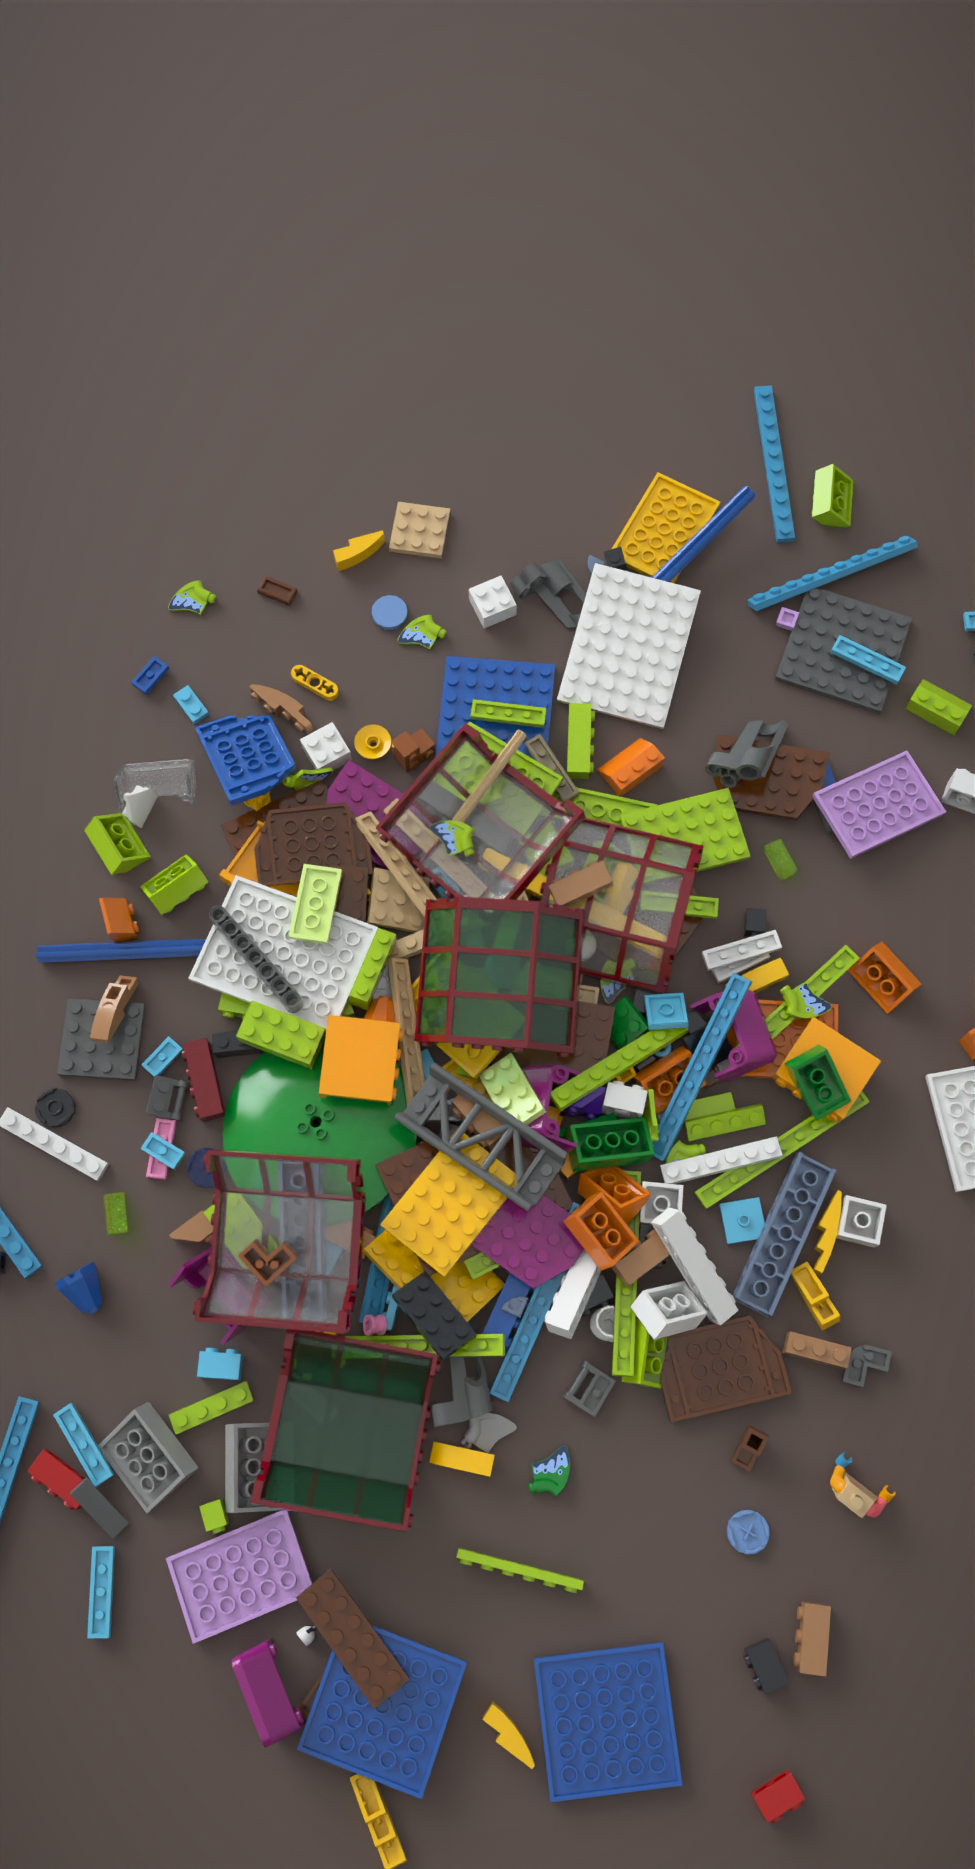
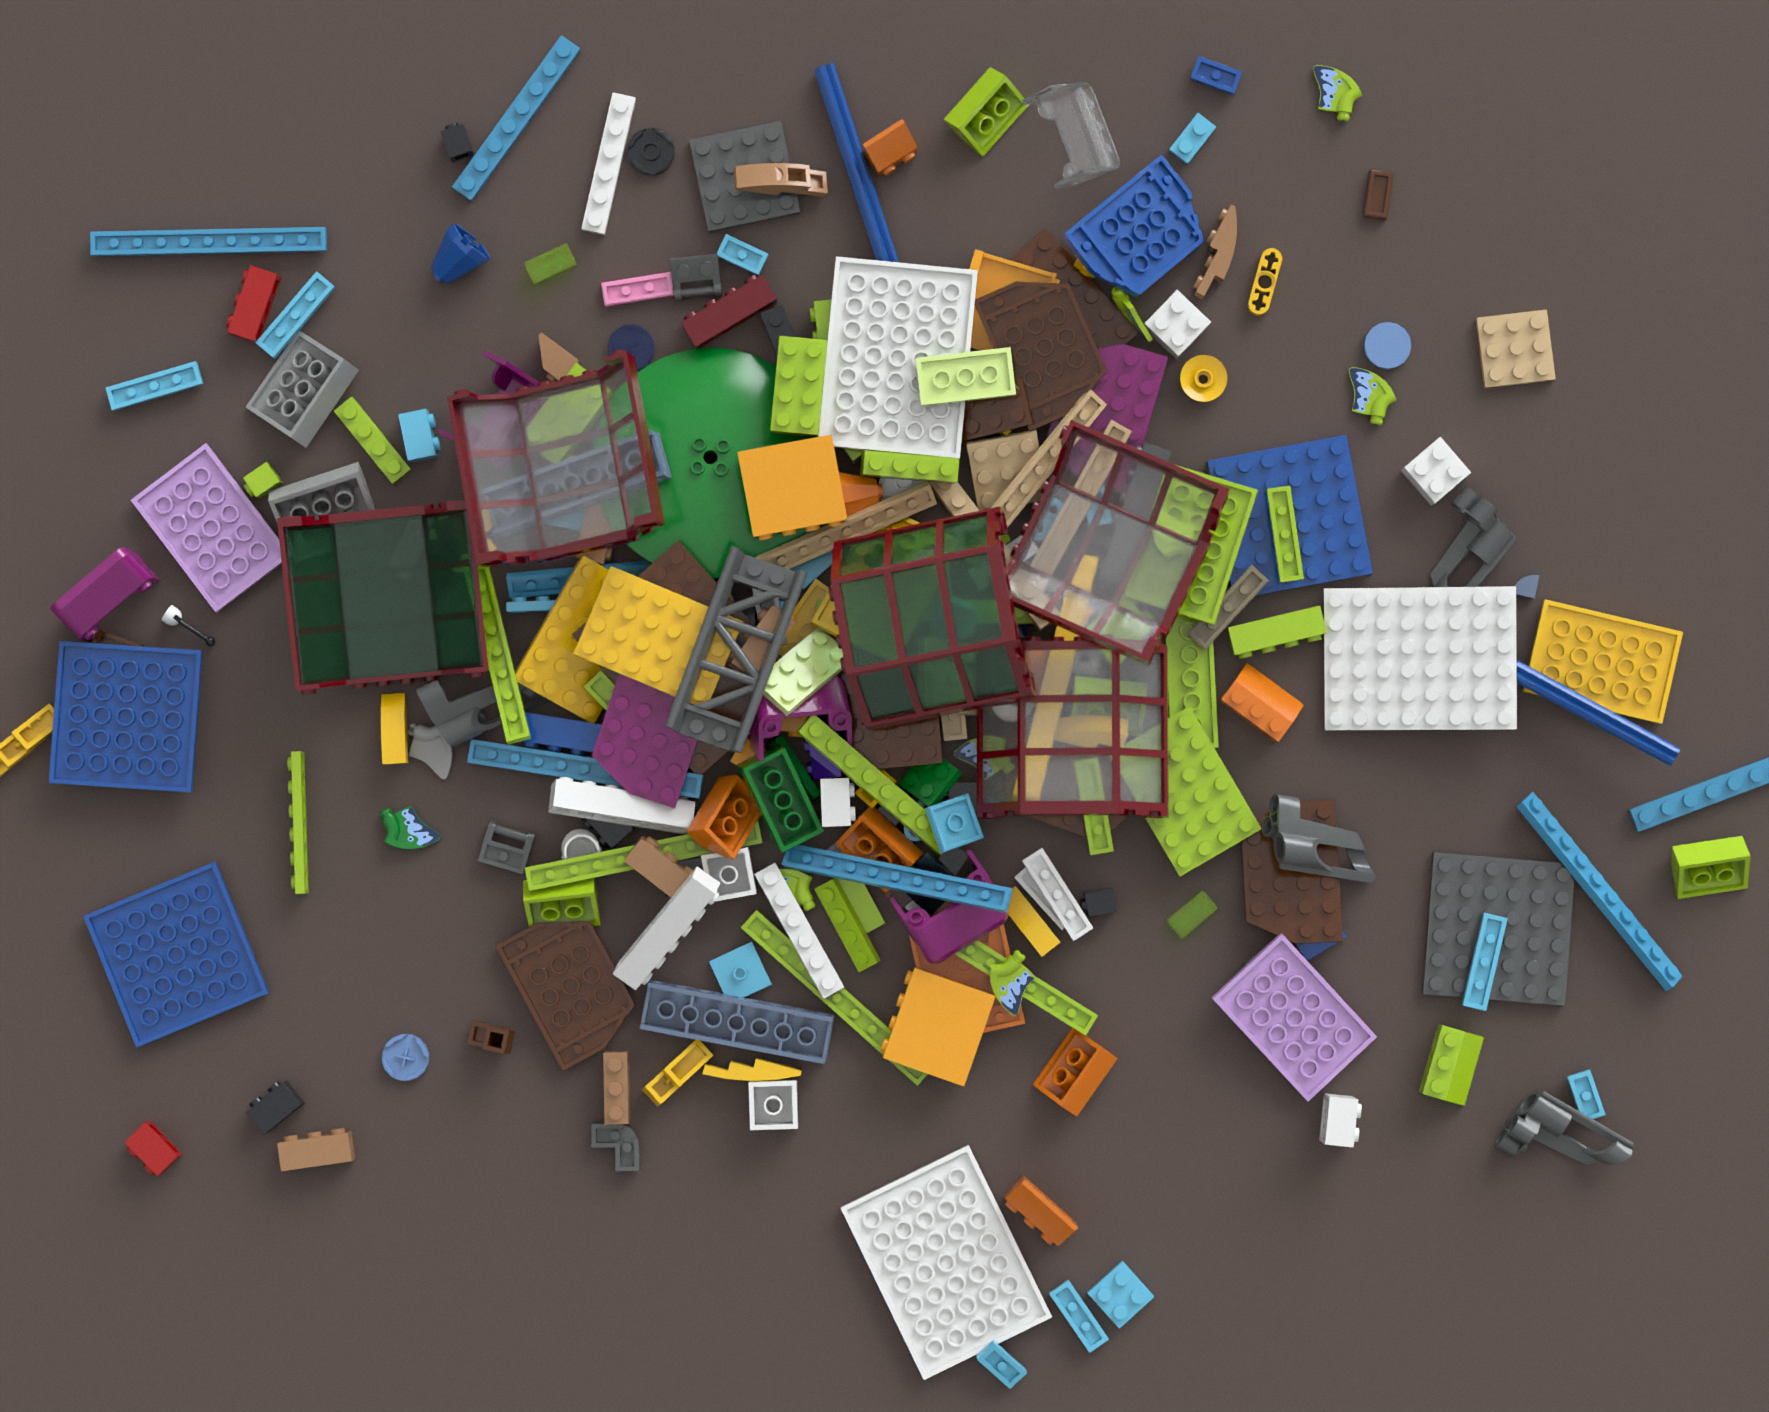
camera: 75 degrees right, 15 degrees up
(99, 1508) = (235, 355): dark grey tile -> none
(139, 805) = (1039, 122): white slope -> none
(163, 1151) = (633, 293): medium azure plate -> none
(174, 884) = (954, 197): lime slope -> none
(260, 966) = (880, 316): dark grey beam -> none
(268, 1265) = (530, 455): dark orange brick -> none
(352, 1638) = (180, 665): reddish brown plate -> none
(358, 550) = (1460, 280): yellow slope -> none
(374, 1325) = (506, 592): bright pink wheel -> none
(412, 749) = (1206, 431): dark orange brick -> none
(434, 1315) = (529, 654): black plate -> none
(455, 836) = (1094, 517): lime arm -> none
(490, 776) = (1178, 536): tan axle -> none
(509, 1734) = (135, 856): yellow slope -> none
(515, 1306) = (570, 741): sand blue tile -> none
(581, 884) = (1065, 682): medium nougat brick -> none
(601, 1231) = (672, 813): orange brick -> none
(615, 558) = (1534, 610): black brick -> none
(650, 1114) = (823, 838): lime arm -> none
(669, 1310) = (610, 912): white brick -> none
(787, 619) = (1518, 848): lavender plate -> none
(818, 1081) = (915, 1018): green slope -> none
(854, 1494) = (473, 1164): torso -> none

